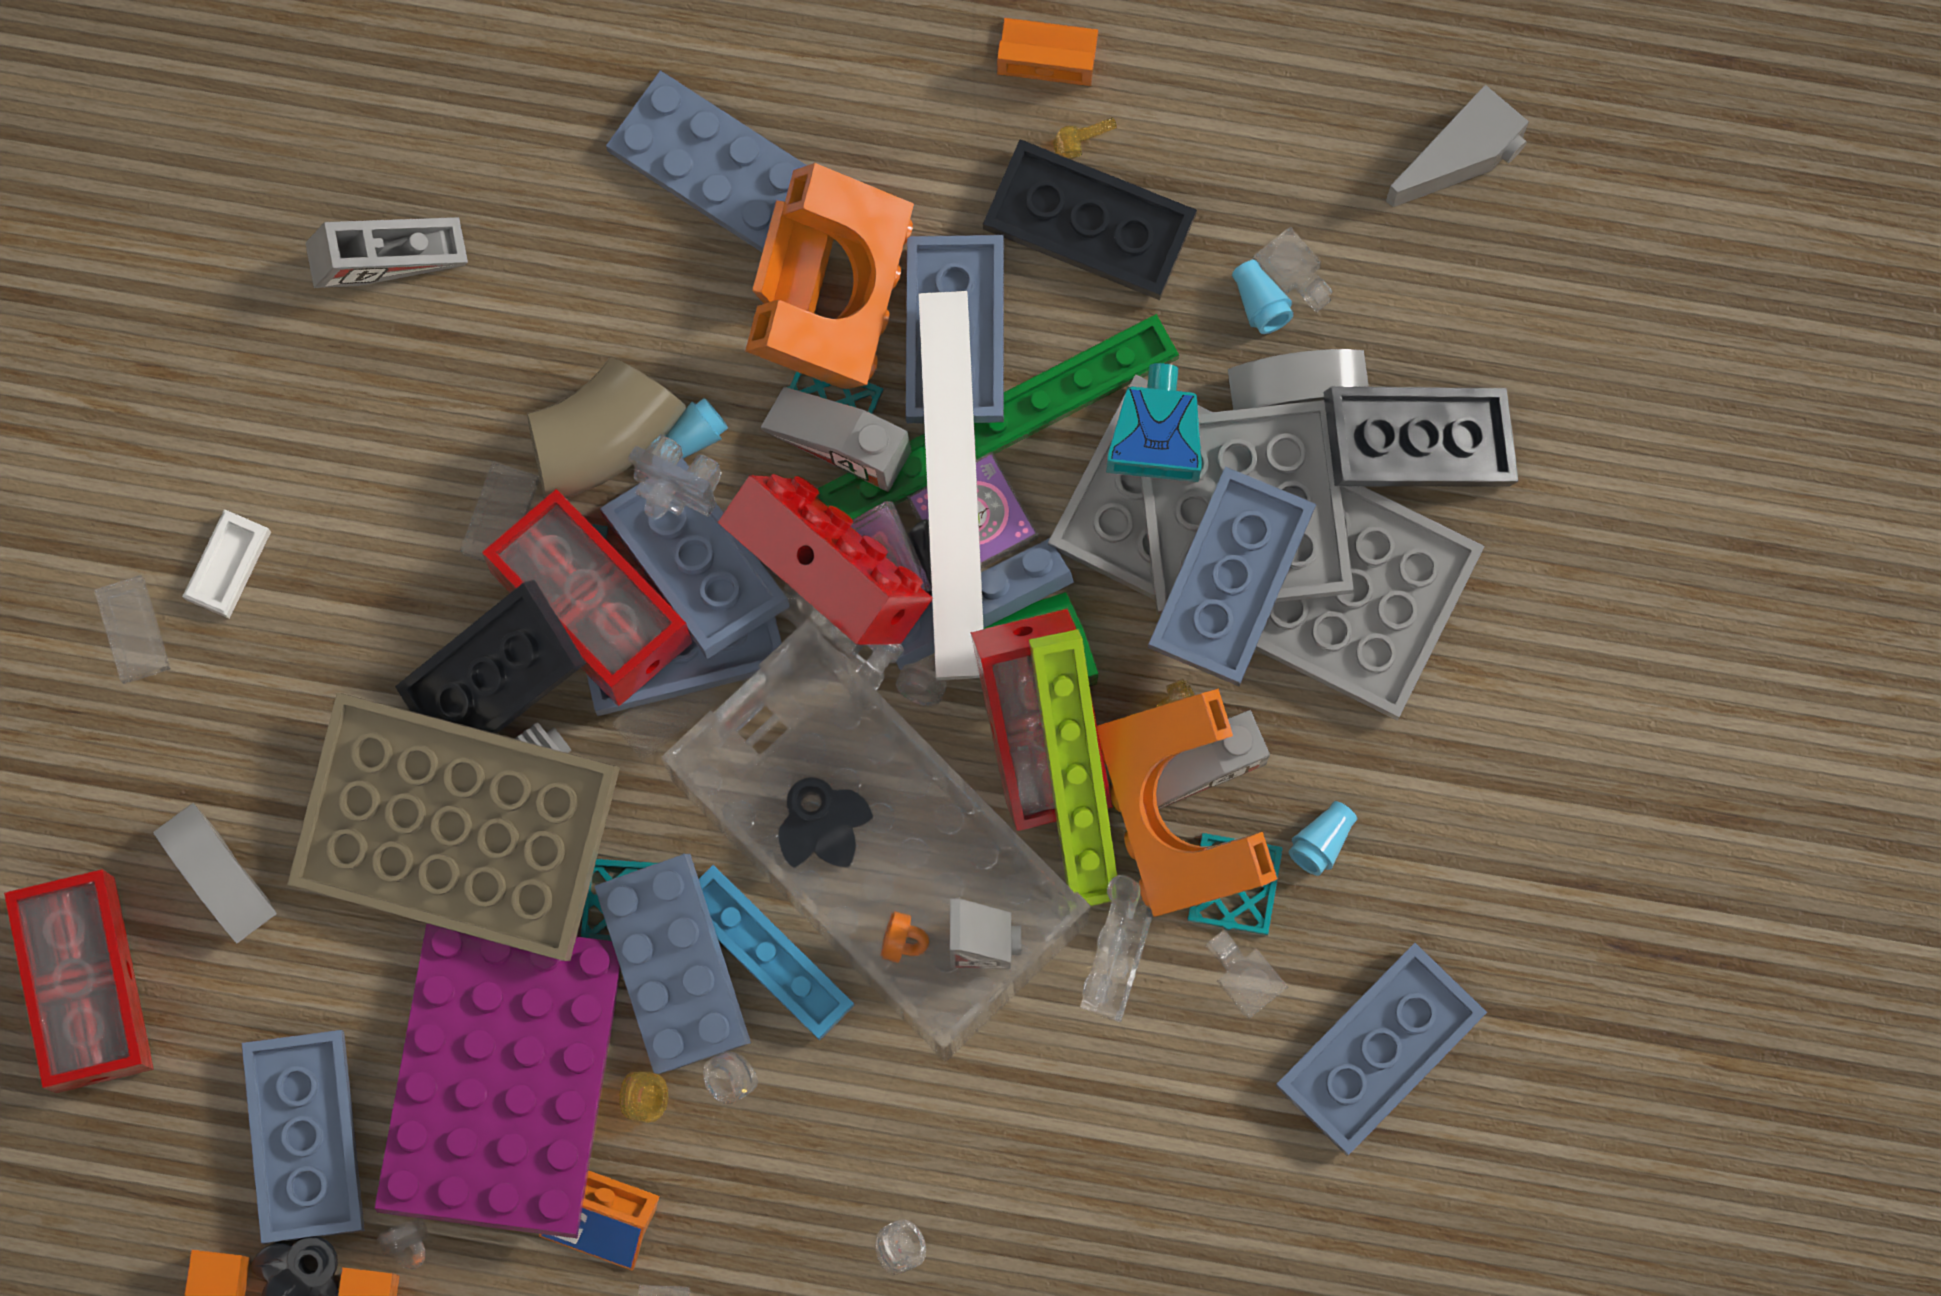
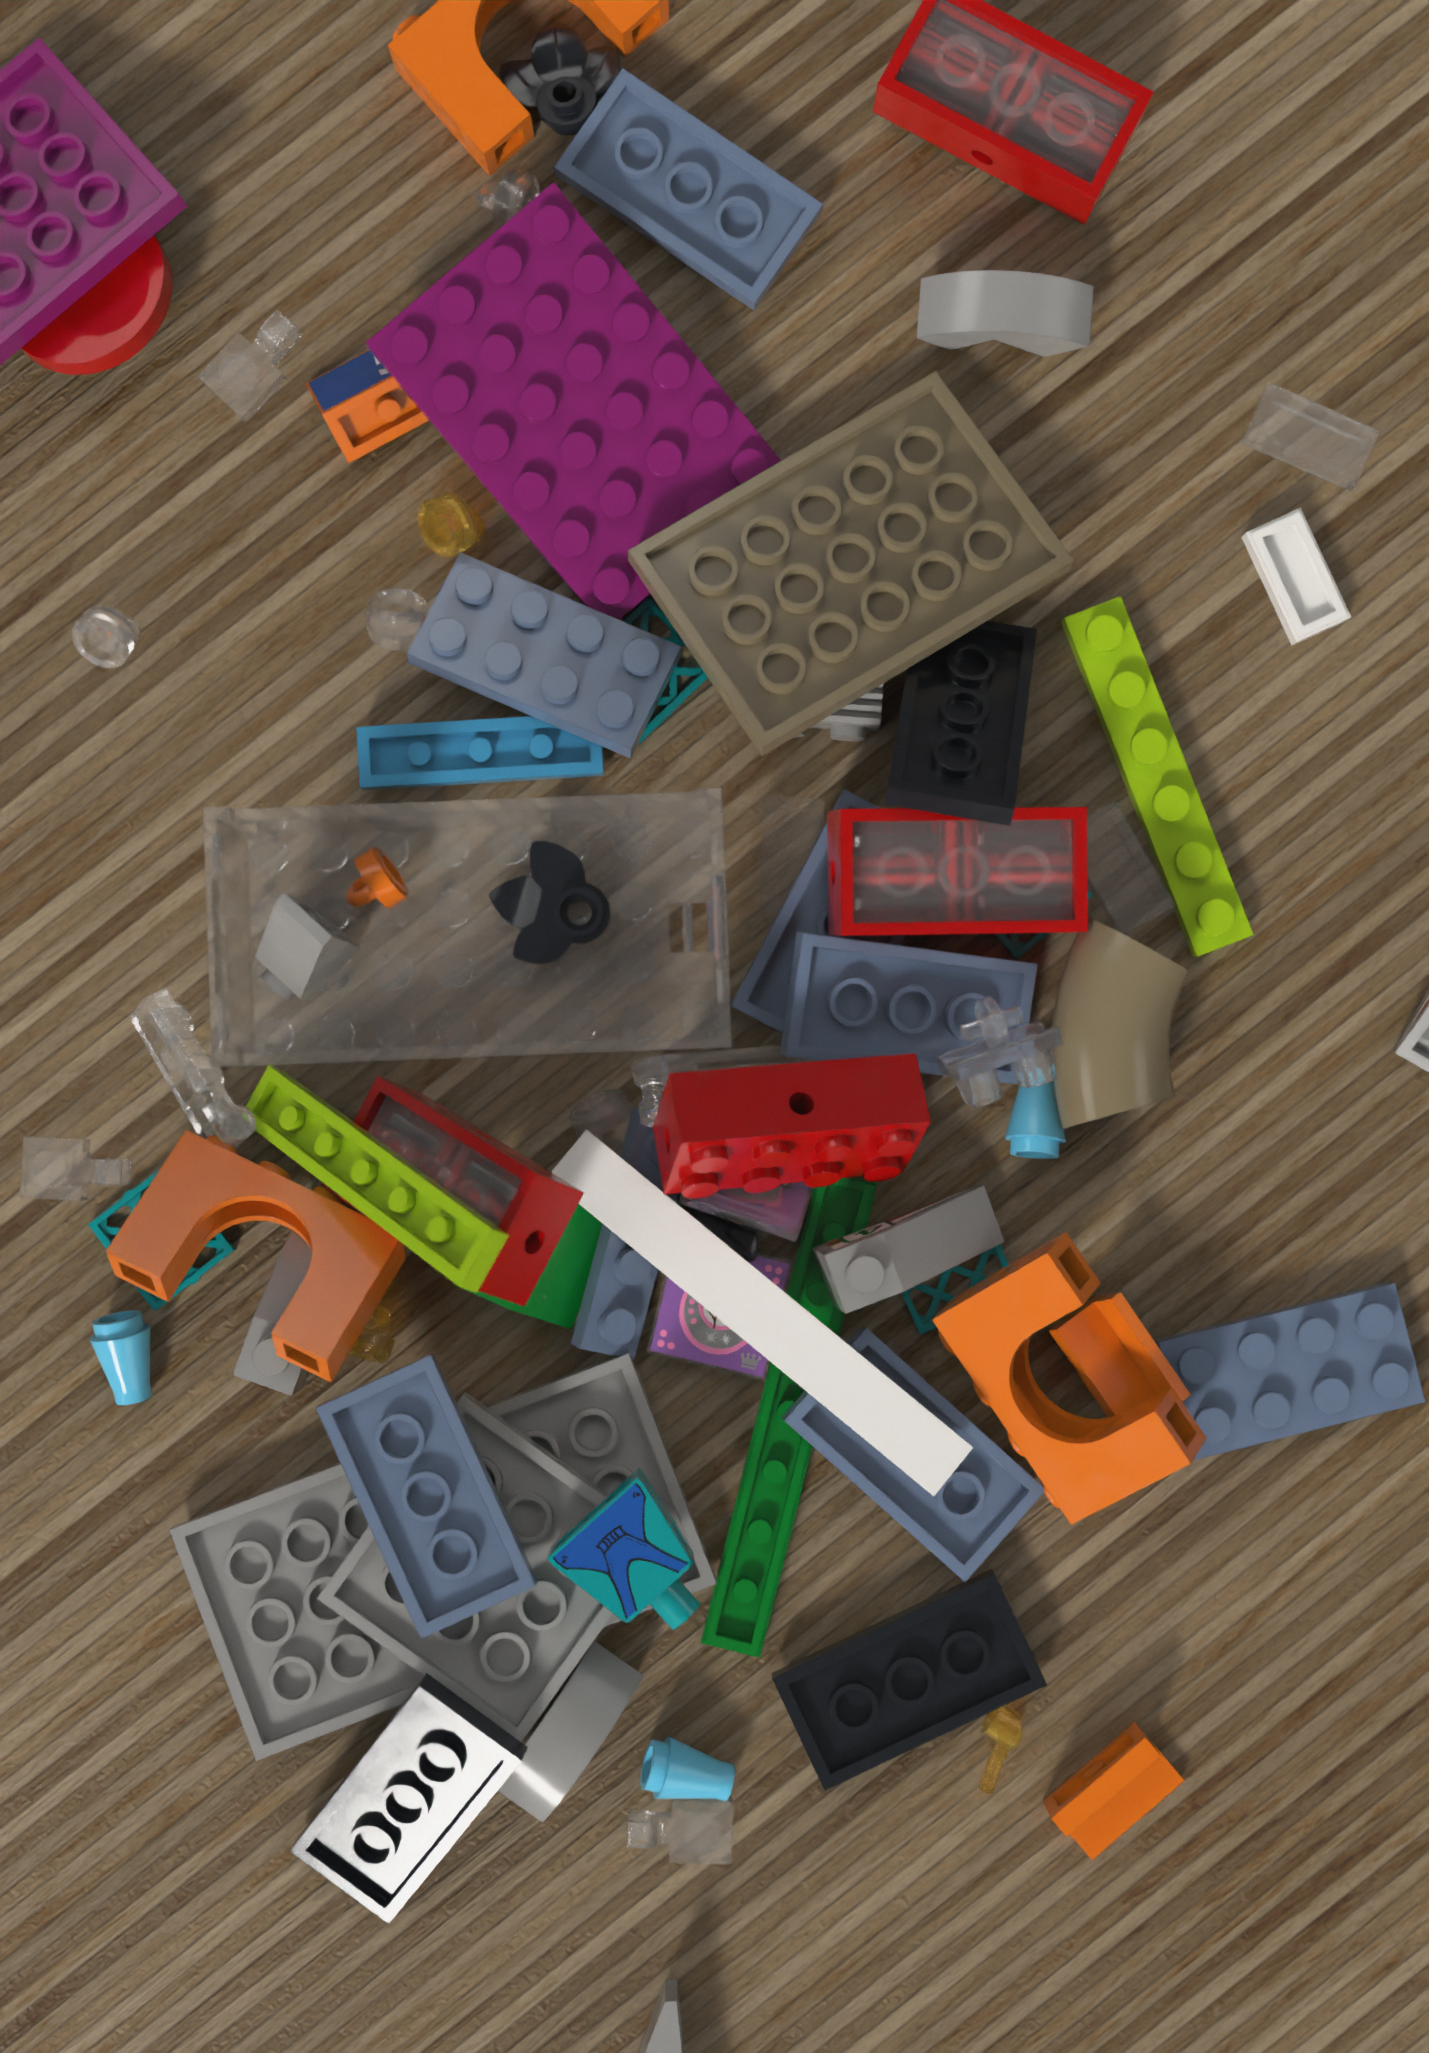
camera: 130 degrees right, 10 degrees up
(422, 540) = (1156, 777): none -> lime plate

